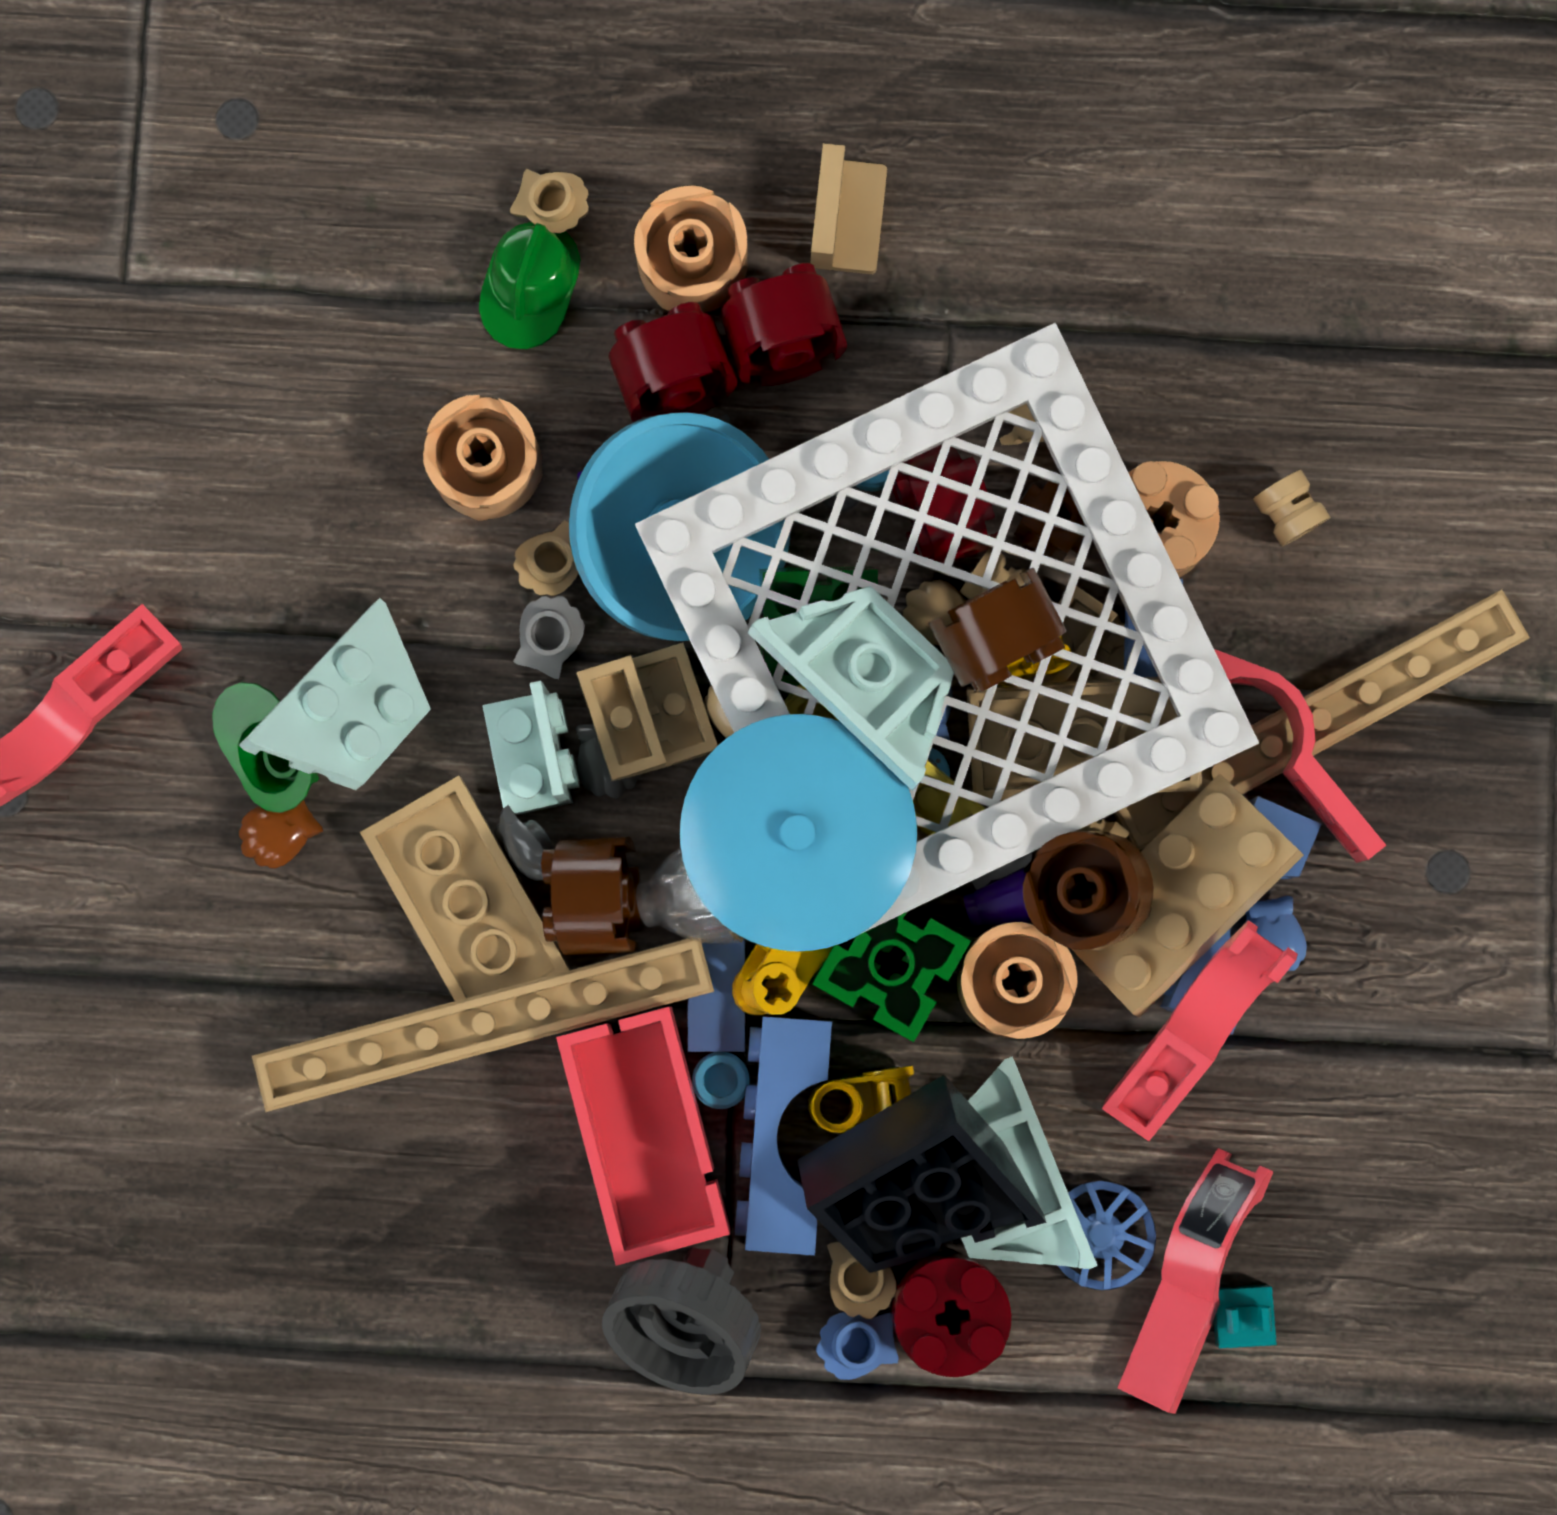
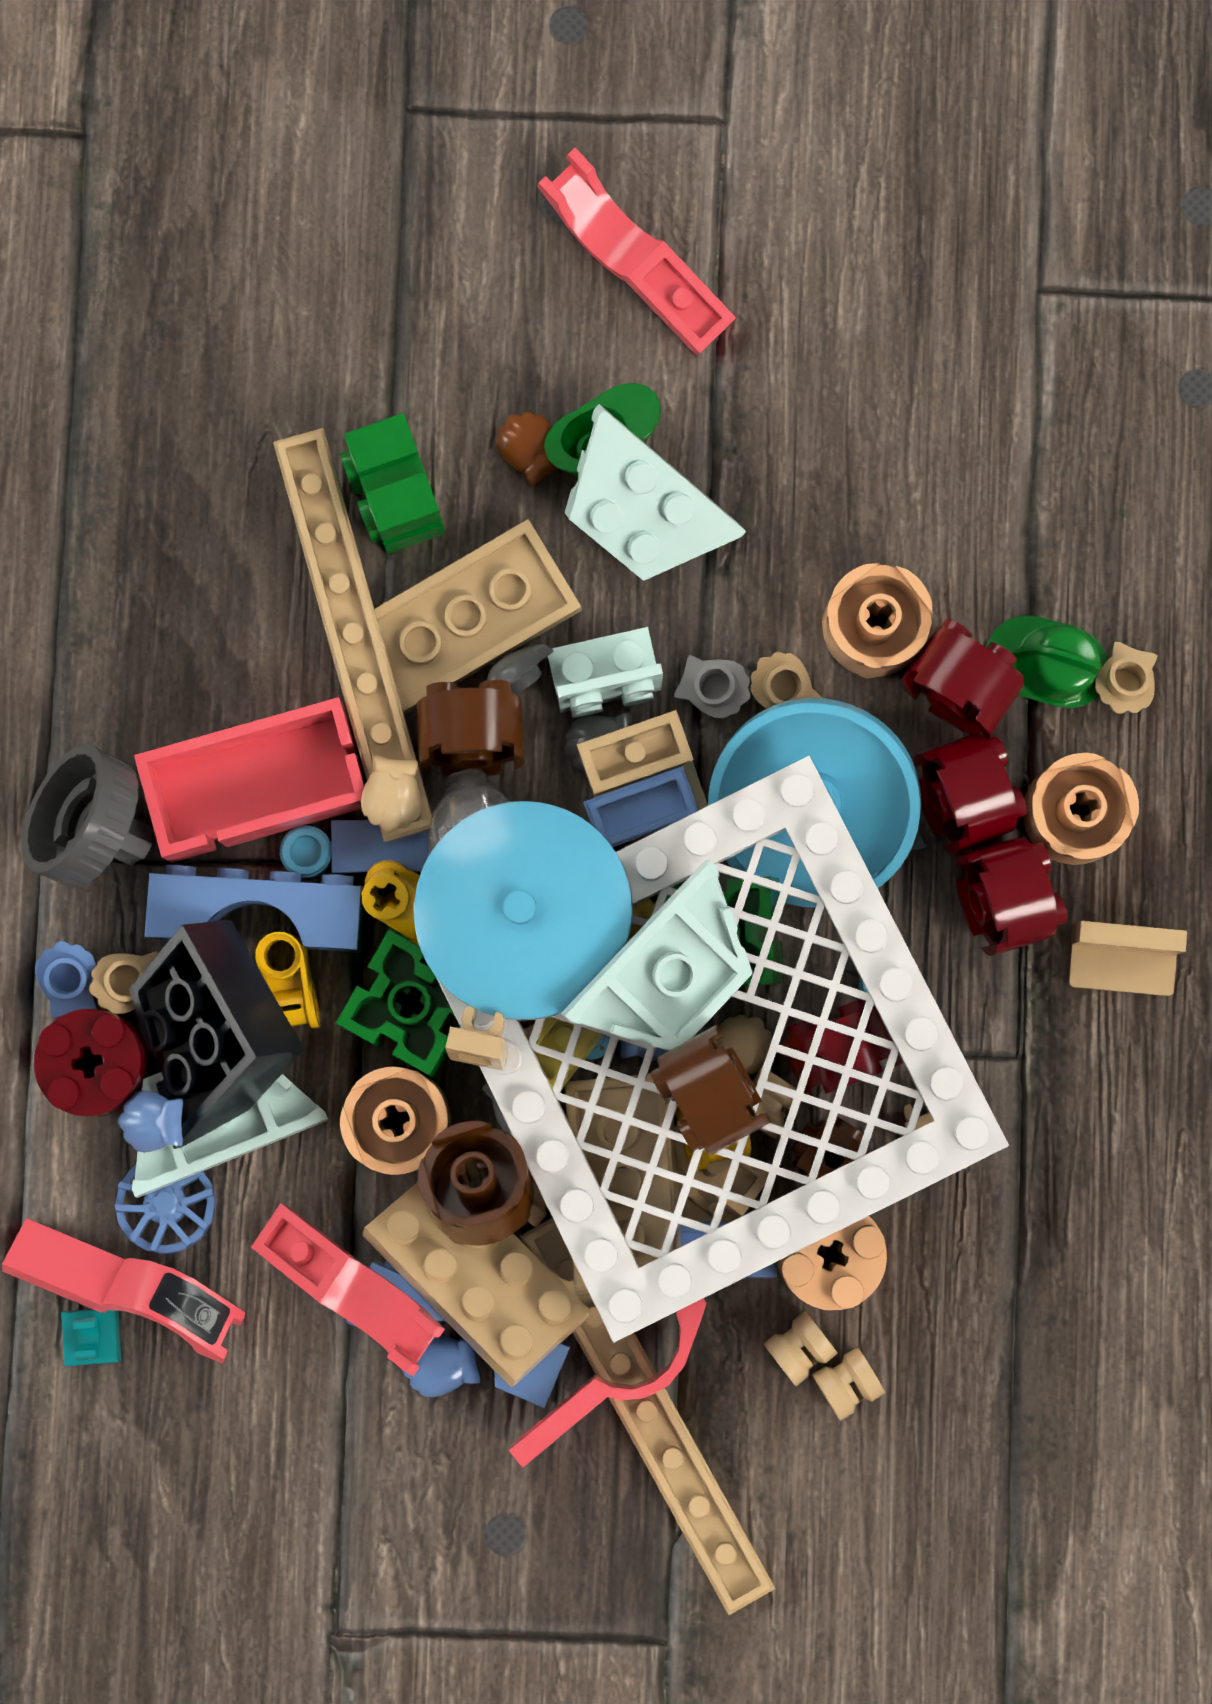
camera: 90 degrees right, 0 degrees up
(320, 974) = (397, 490): none -> green brick
(550, 365) = (964, 680): none -> dark red brick
(663, 979) = (391, 794): none -> tan animal
(680, 711) = (642, 807): none -> medium blue tile
(945, 882) = (477, 1046): none -> tan tile
(998, 902) = (469, 1101): dark purple cone -> none
(1018, 1245) = (151, 1121): none -> medium blue animal
(1255, 557) = (787, 1350): none -> tan wheel

